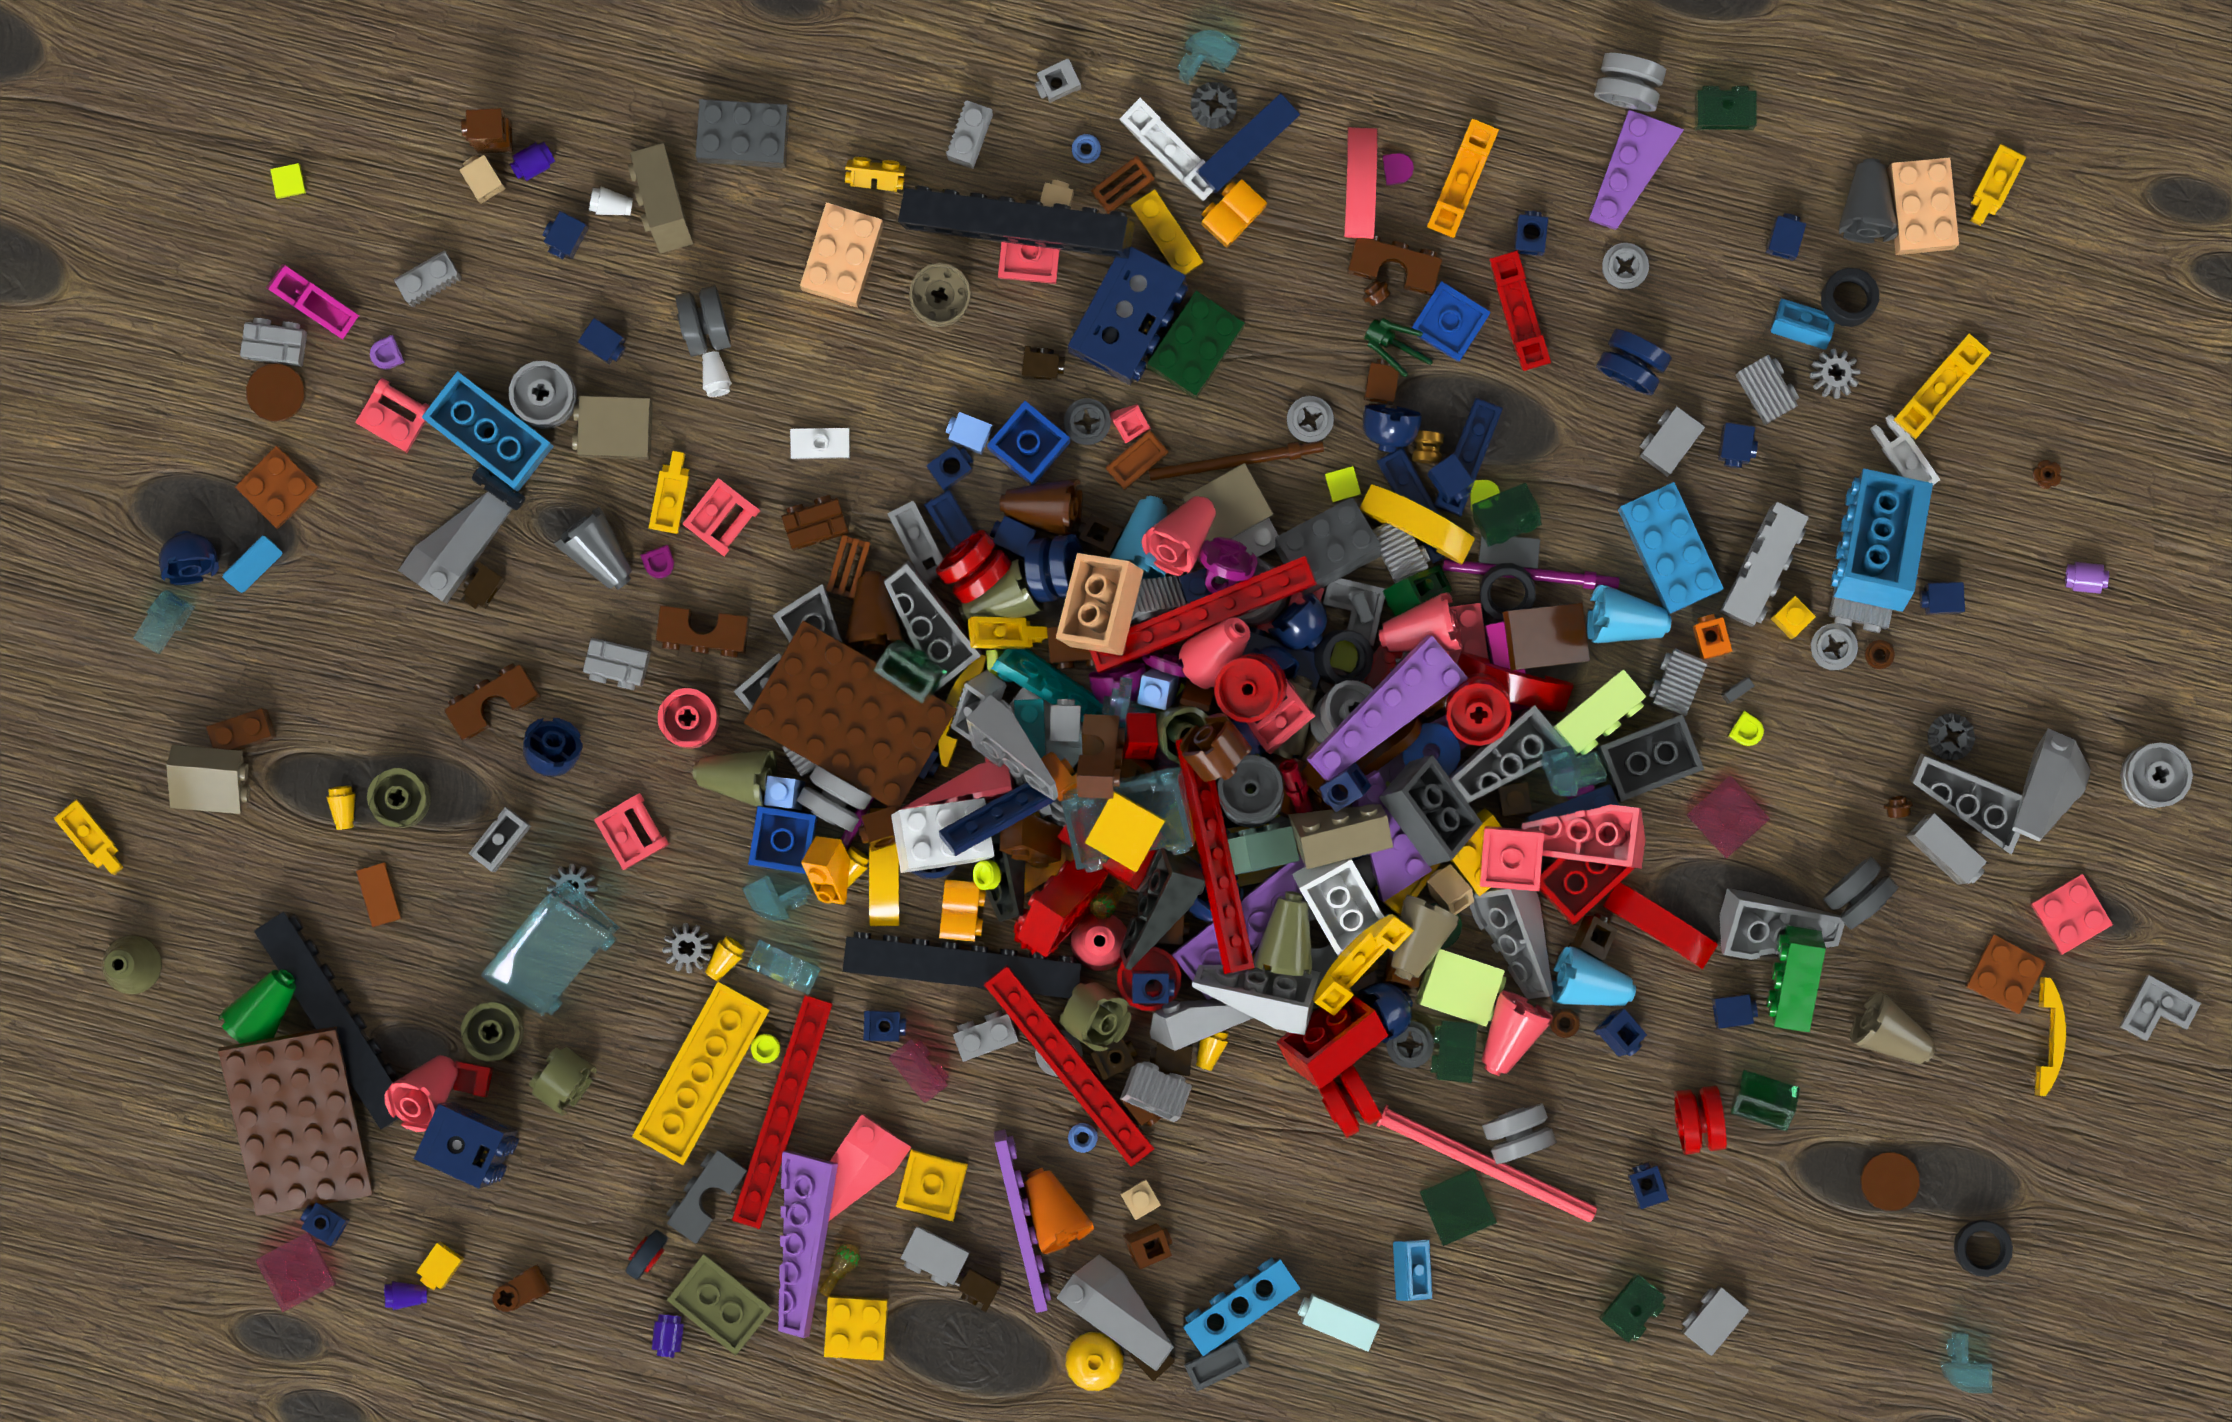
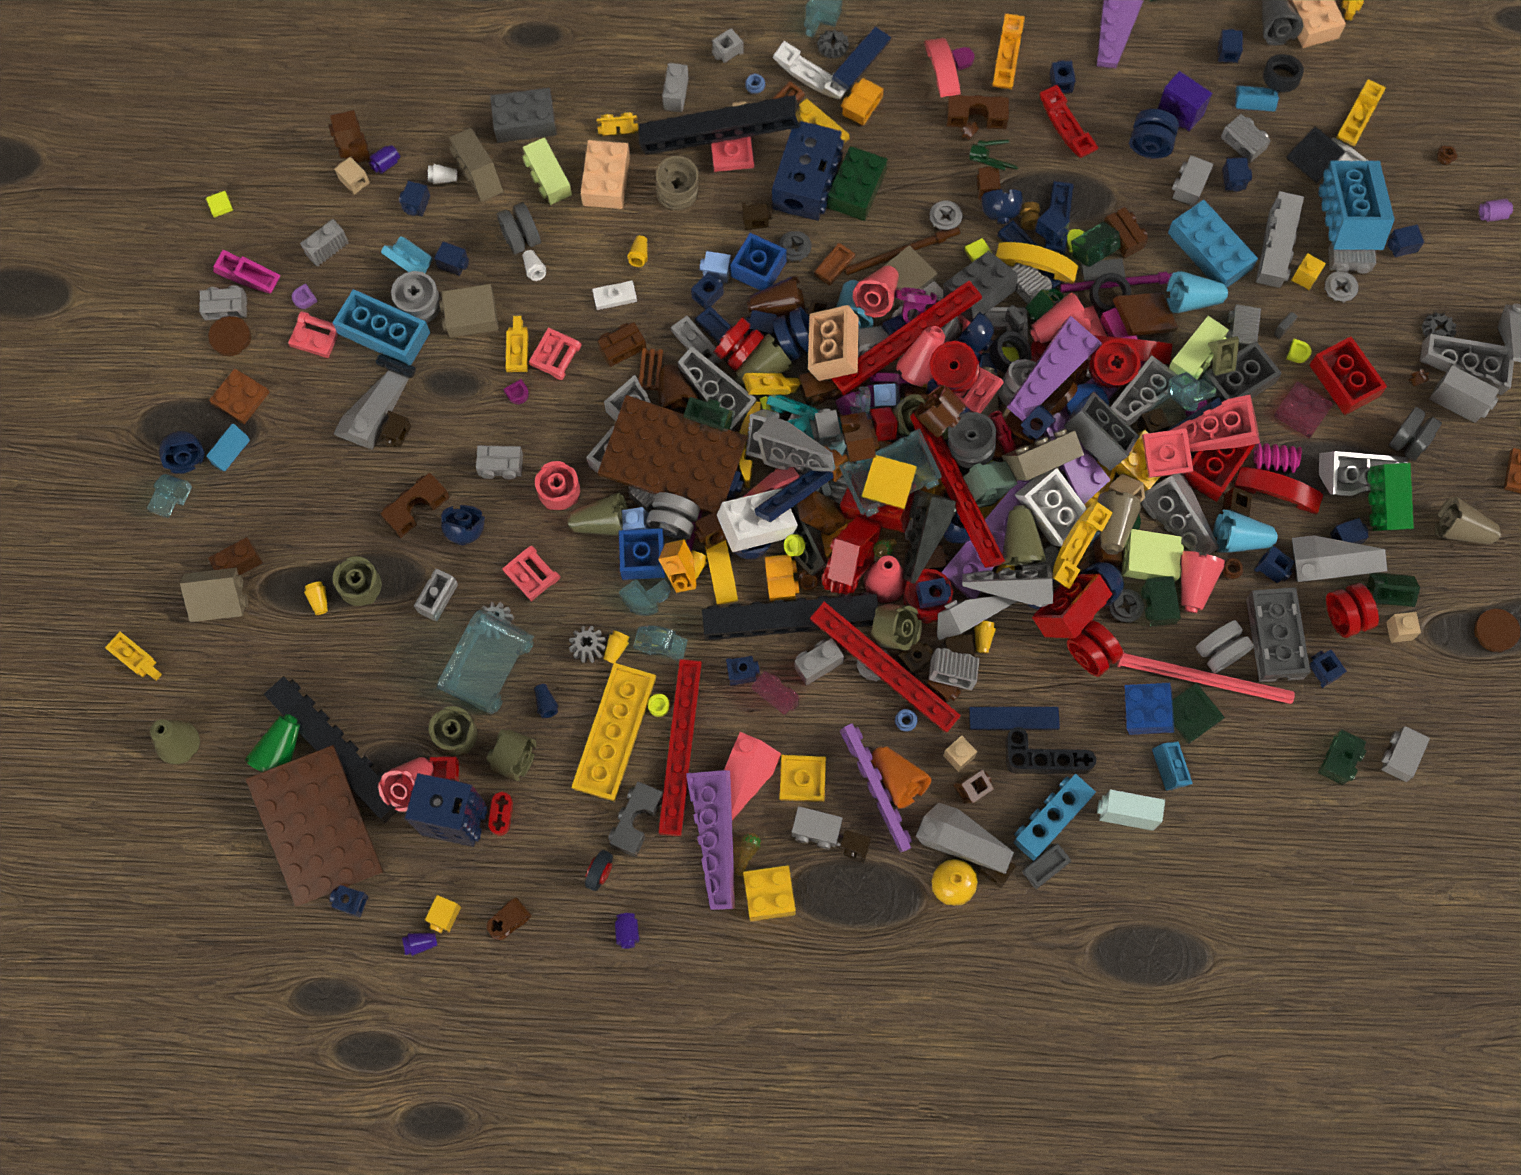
camera: 15 degrees left, 15 degrees down
(295, 1272) = (332, 942): clear pink plate -> none
(378, 894) = (353, 655): dark orange tile -> none
(528, 1147) = (495, 813): none -> red beam
(541, 327) = (408, 255): none -> medium azure bracket
(596, 550) = (470, 387): dark grey cone -> none
(618, 1016) = (545, 702): none -> dark blue cone
(676, 630) = (573, 430): reddish brown arch -> none
(720, 1304) = (662, 898): olive plate -> none
(759, 231) = (546, 171): none -> yellowish green brick
(866, 385) = (638, 253): none -> yellow cone
(993, 924) = (807, 581): none -> reddish brown plate
(1129, 422) = (824, 241): coral slope -> none
(1223, 1164) = (1010, 717): none -> dark blue tile
(1256, 1227) = (1049, 755): none -> black beam
(1399, 1193) = (1149, 708): none -> blue brick
(1450, 321) = (1024, 138): blue plate -> none
(1555, 501) = (1131, 235): none -> reddish brown brick
(1595, 1130) = (1277, 634): none -> dark grey piece
(1625, 252) = (1124, 79): light grey gear -> none
(1627, 731) = (1224, 355): none -> olive slope
(1668, 882) = (1277, 456): none -> dark pink piece
(1690, 318) = (1185, 100): none -> dark purple brick
(1691, 1044) = (1330, 558): none -> light grey wedge
(1720, 645) = (1258, 294): orange brick -> none
(1764, 1153) = (1403, 627): none -> tan brick
(1798, 786) = (1348, 375): none -> red brick
(1840, 365) = (1287, 120): light grey gear -> none
(1858, 438) = (1314, 154): none -> black tile
(1888, 650) = (1377, 282): reddish brown plate -> none

